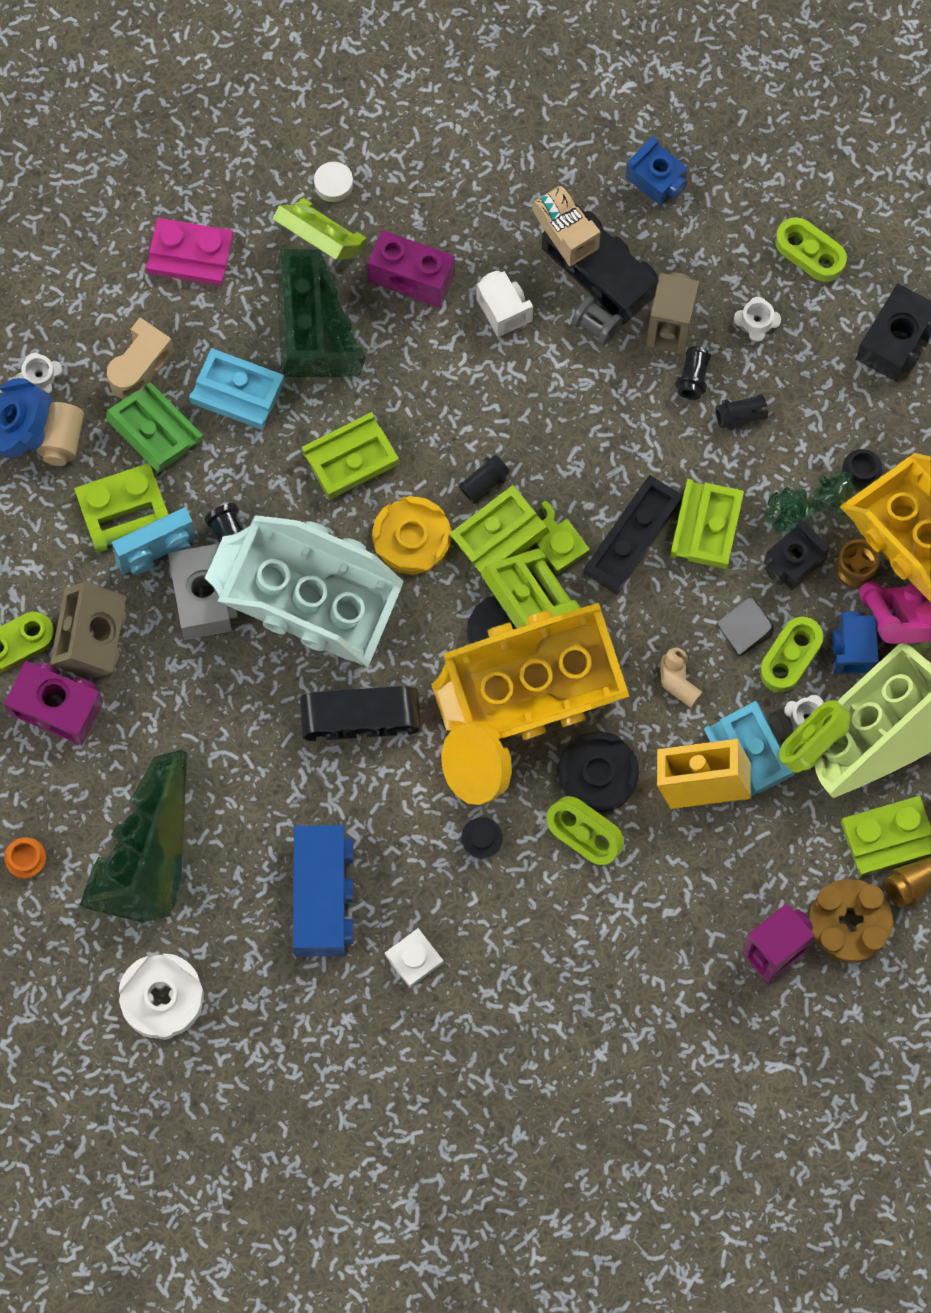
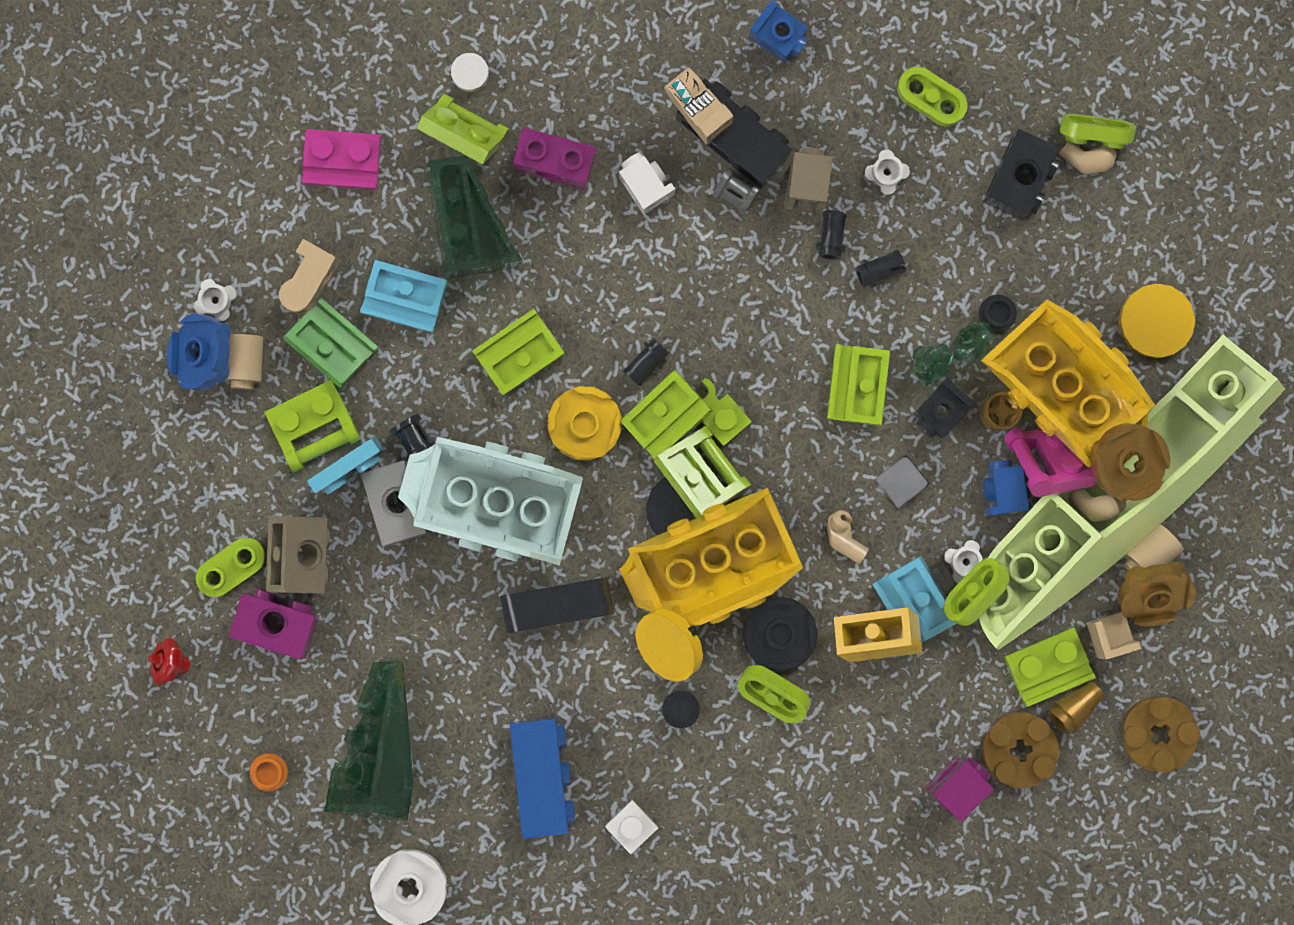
camera: 10 degrees left, 15 degrees up
(633, 534) = (790, 402): black plate -> none
(789, 655) = (947, 505): lime plate -> none

